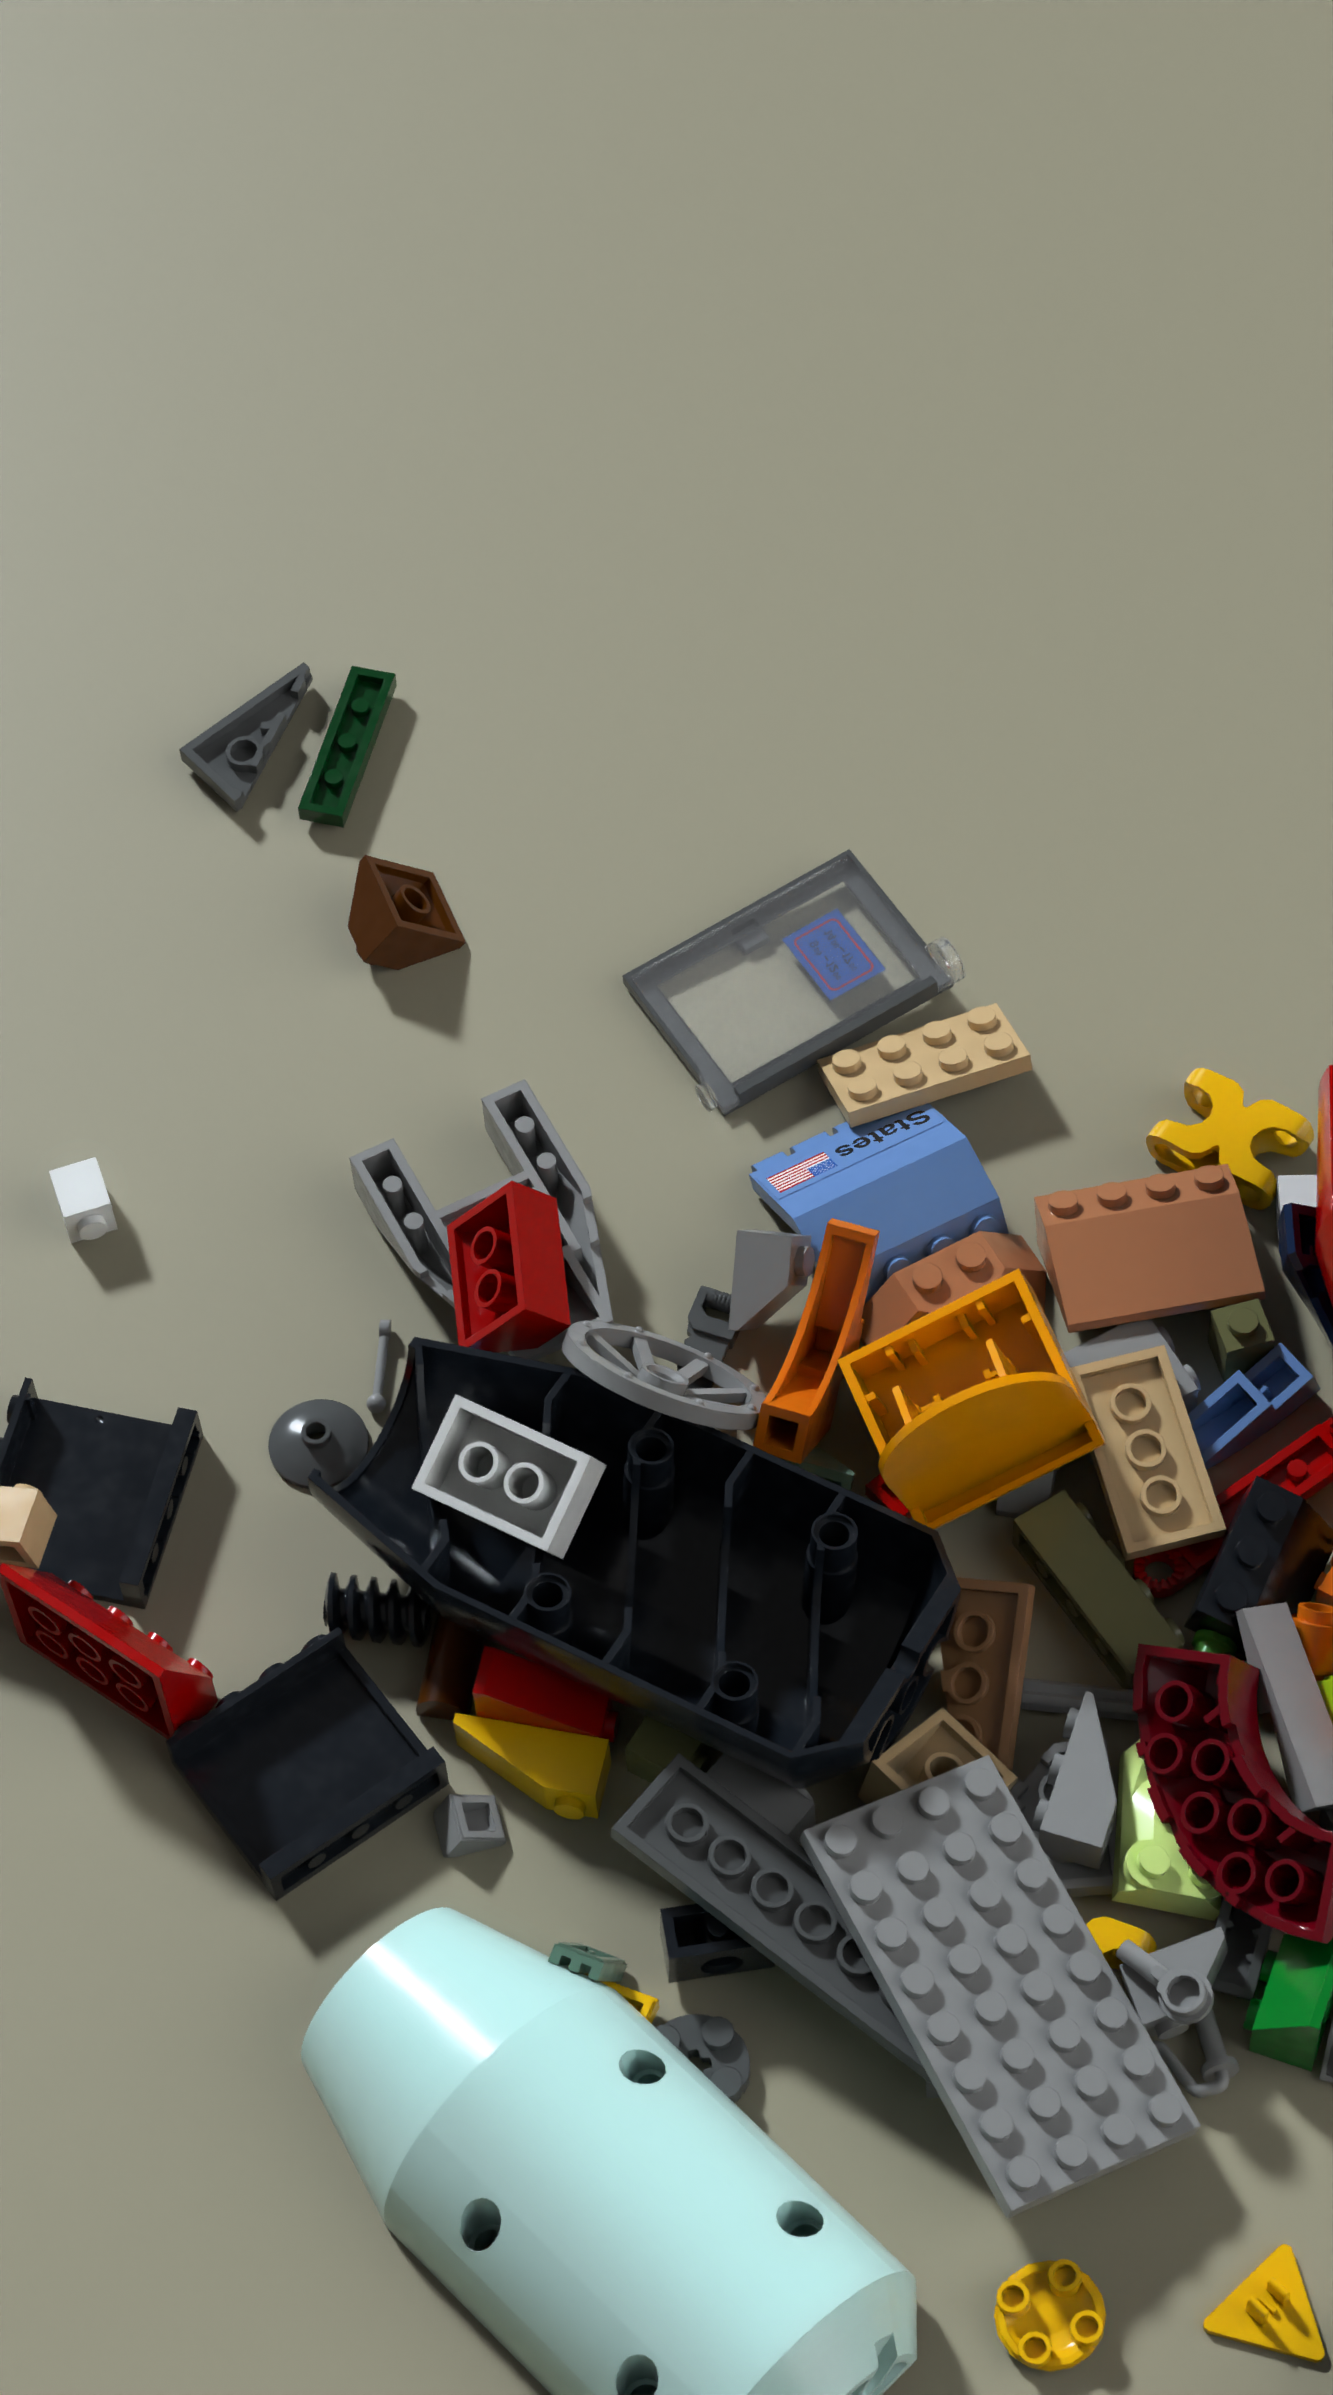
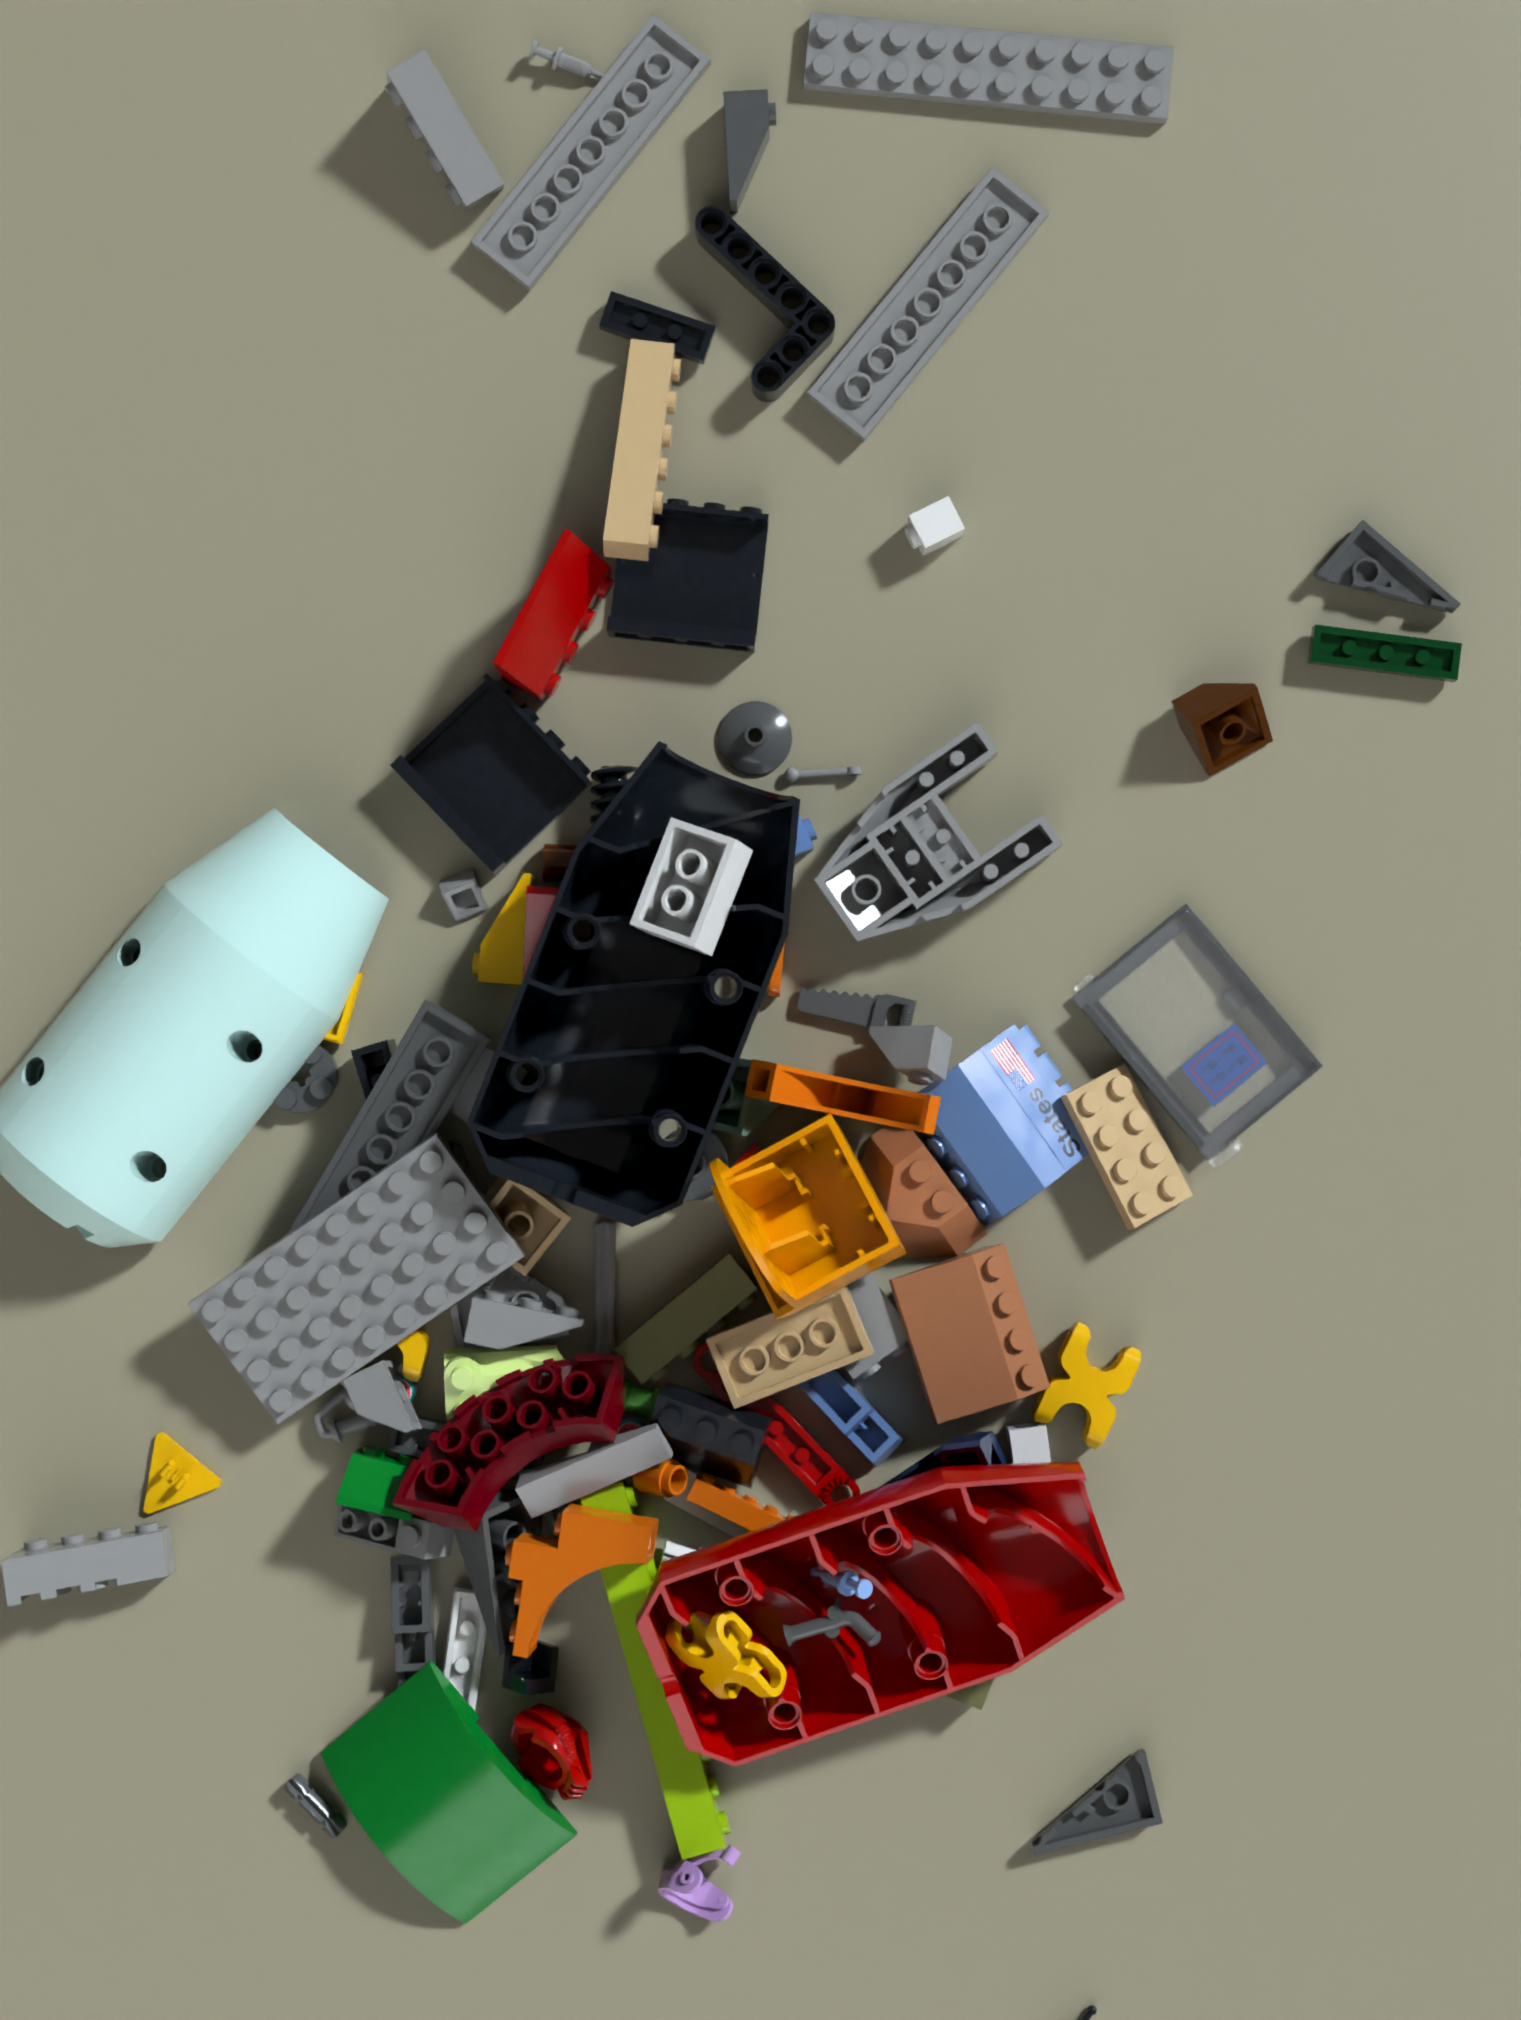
camera: 80 degrees right, 30 degrees up
(509, 1271) = (878, 859): red slope -> none
(589, 1961) = (338, 990): sand green tile -> none
(658, 1385) = (796, 986): light grey wheel -> none
(988, 1661) = (609, 1247): medium nougat wing -> none
(1050, 2315) = (150, 1332): yellow dish -> none
(1183, 1993) = (357, 1407): light grey plate -> none
(1239, 1337) = (906, 1406): olive brick -> none

